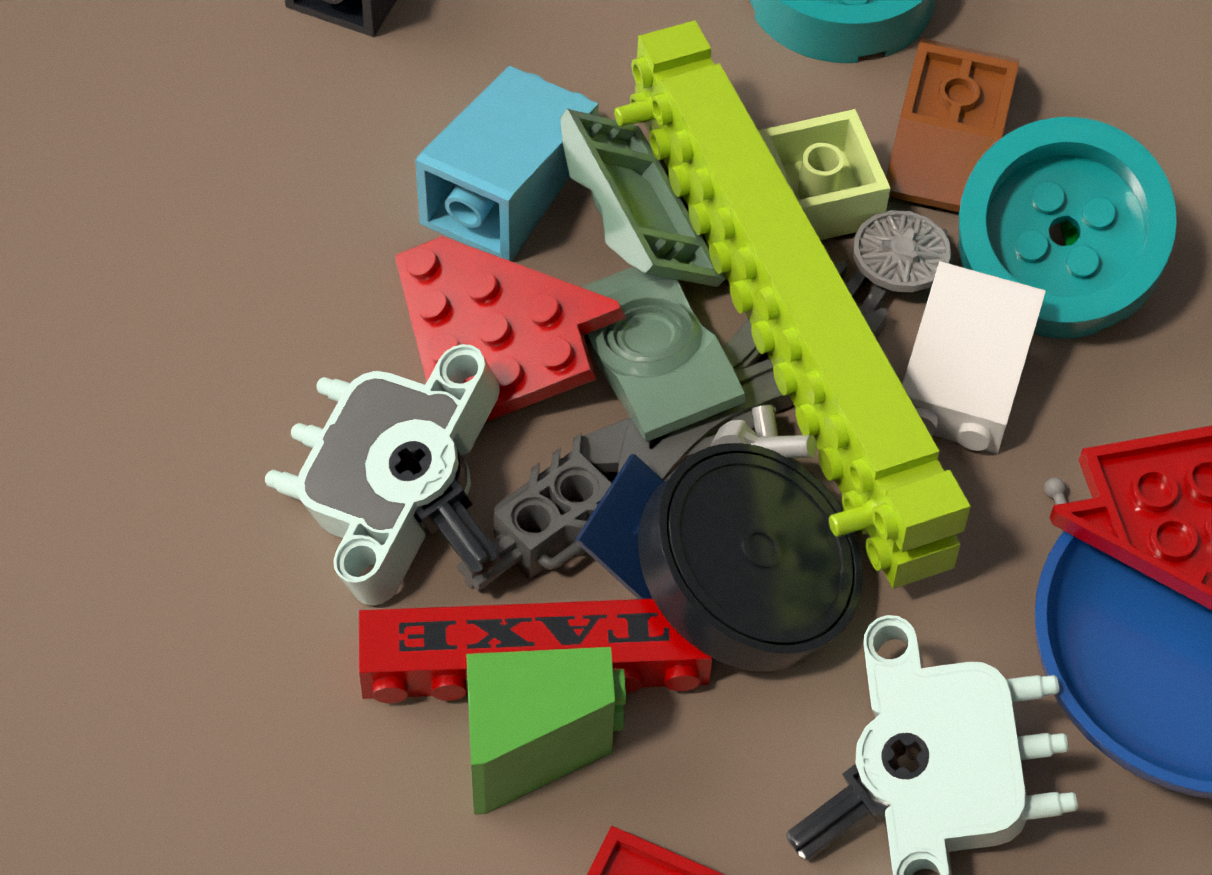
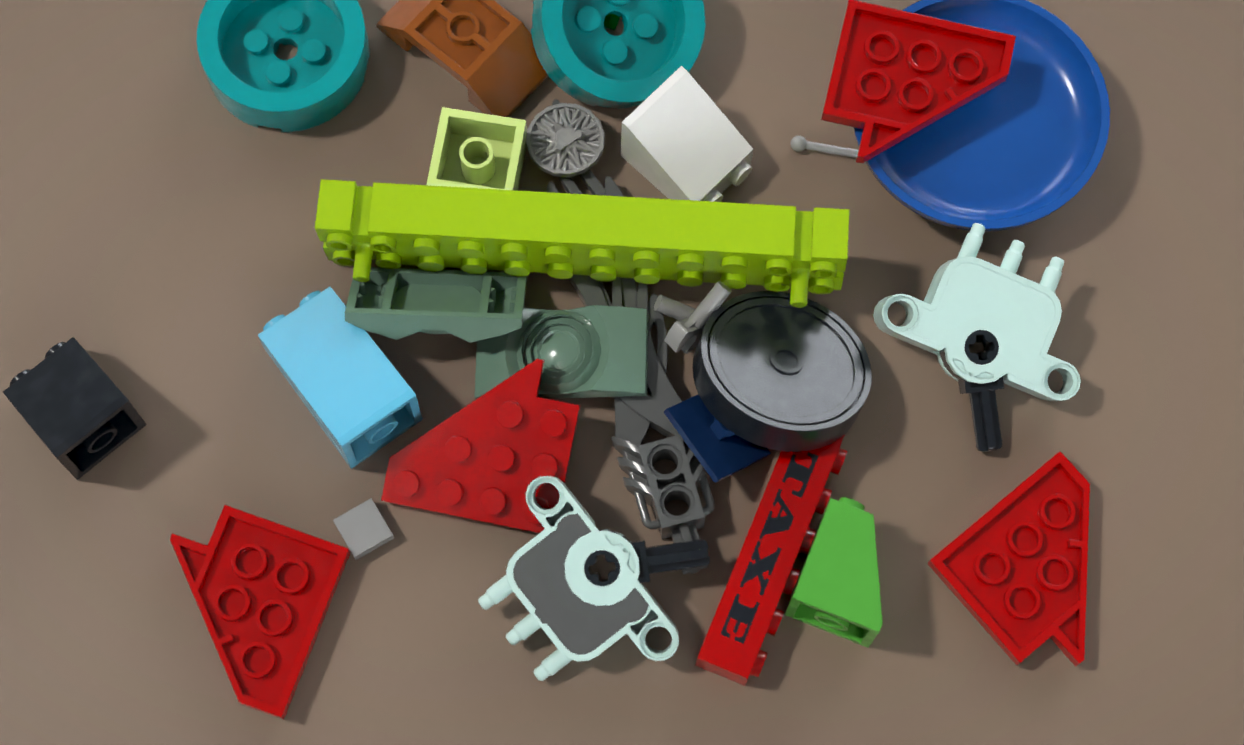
camera: 65 degrees left, 15 degrees up
(229, 199) = (262, 601): none -> red wing
(356, 256) = (363, 529): none -> light grey tile

